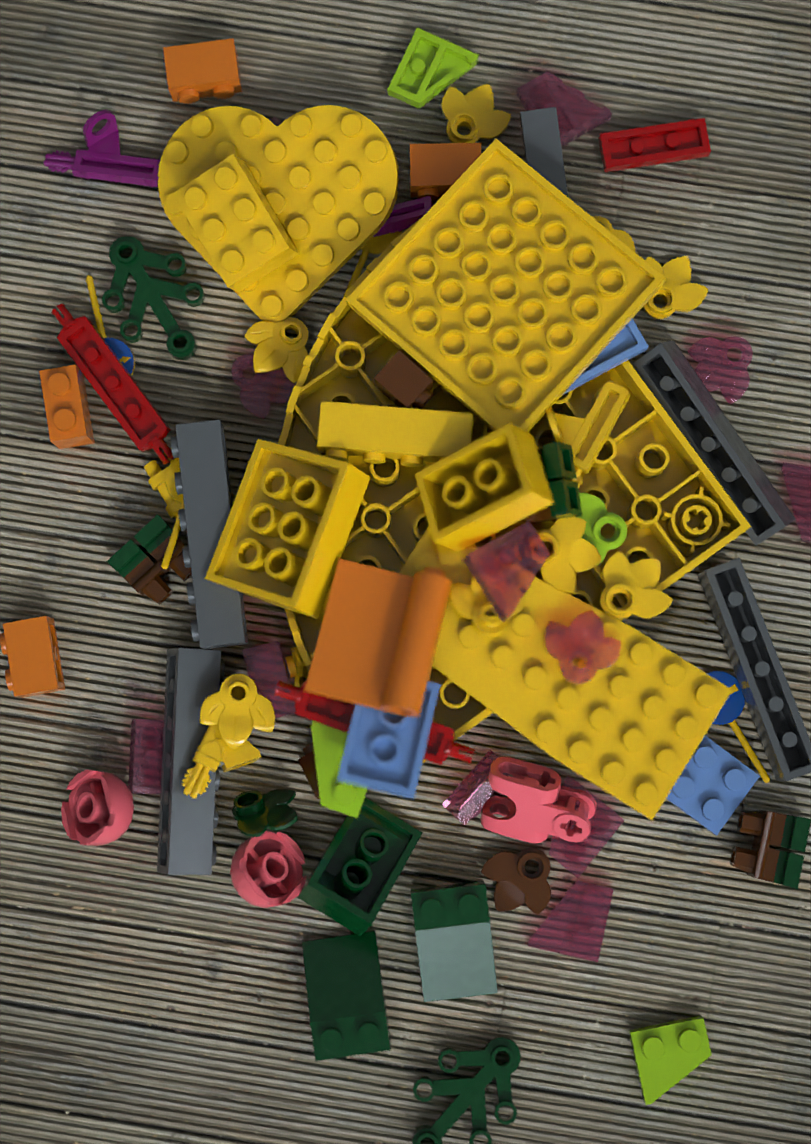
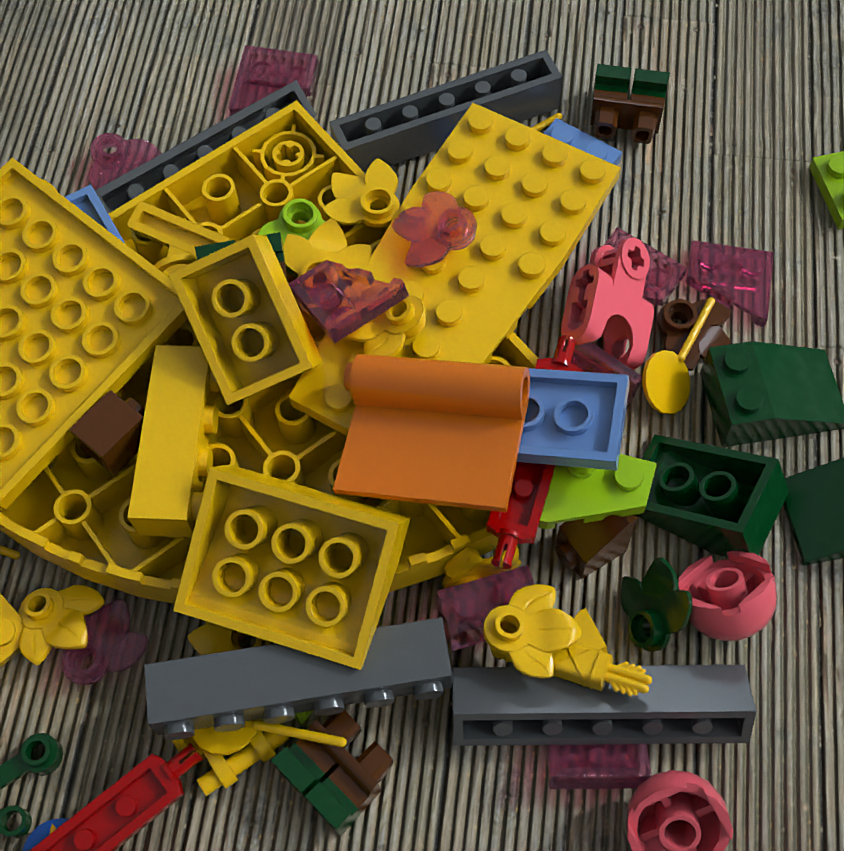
camera: 90 degrees left, 20 degrees down
(472, 850) = (667, 376): none -> yellow piece

